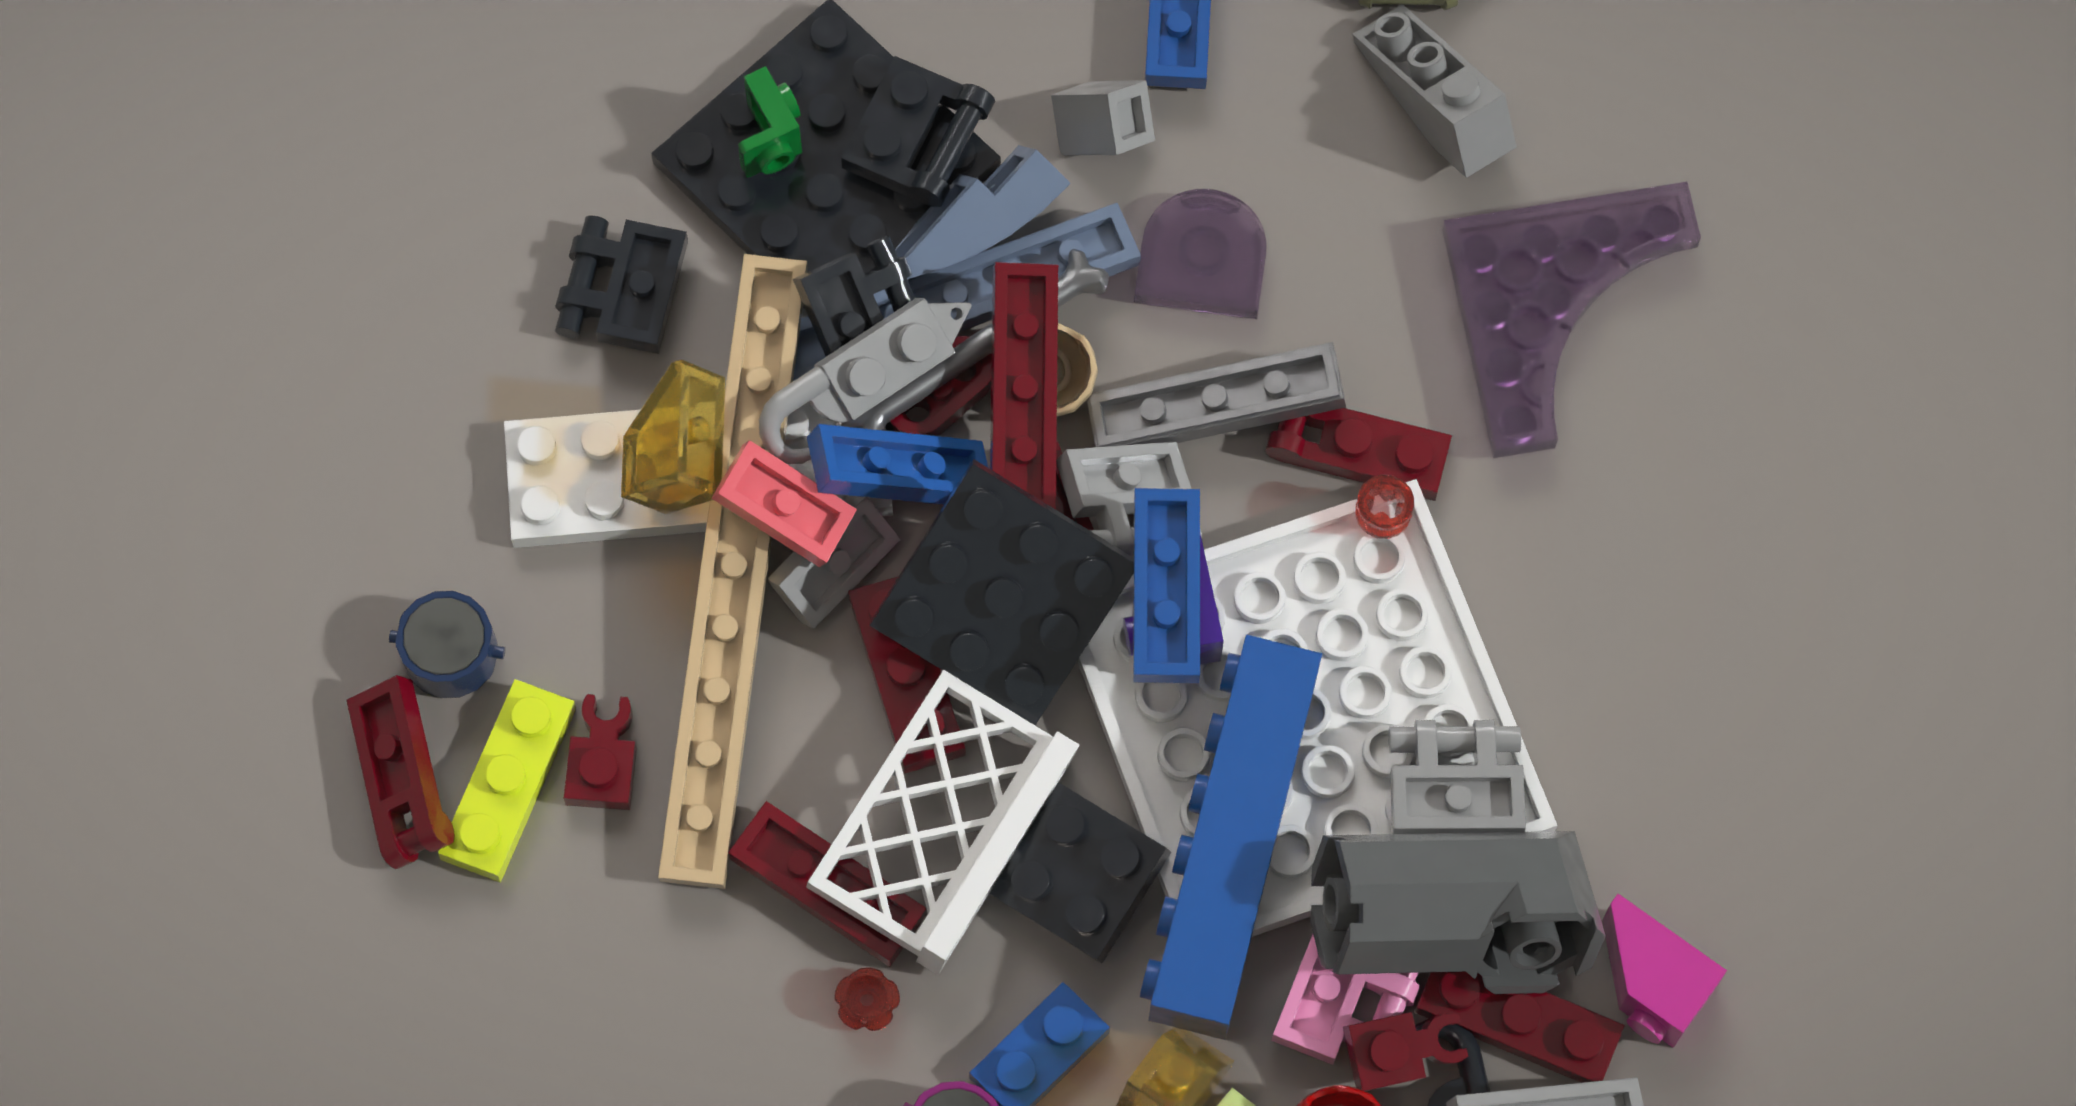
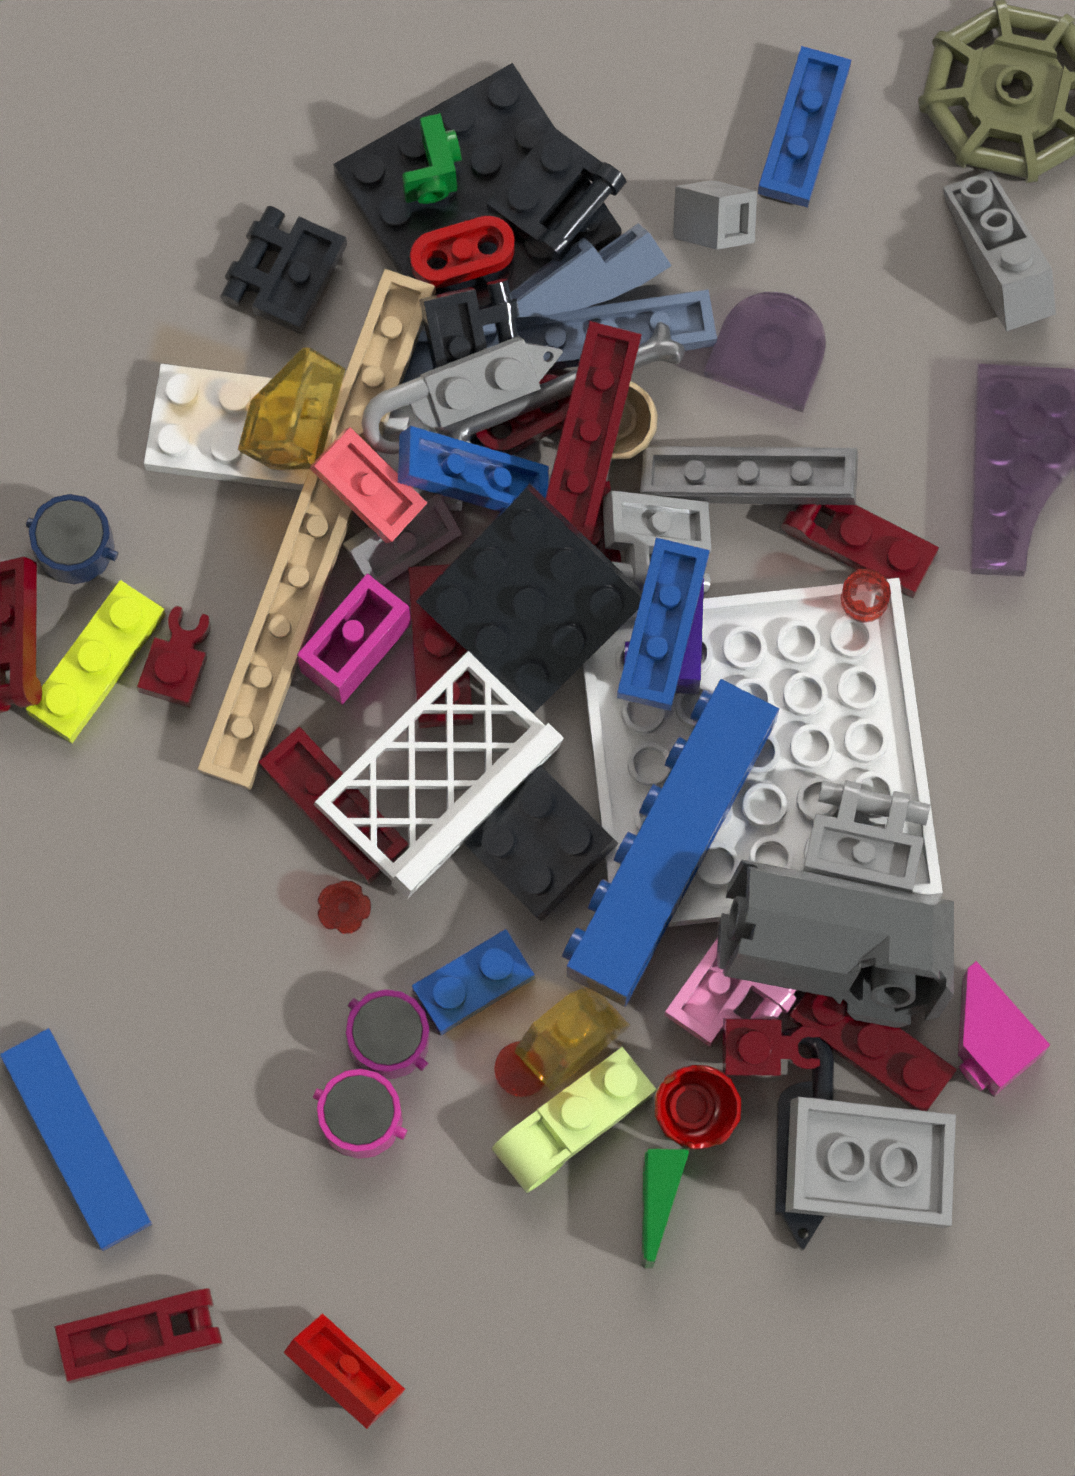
camera: 15 degrees right, 5 degrees up
(807, 685) = (354, 639): none -> dark pink brick
(823, 218) = (459, 248): none -> red plate

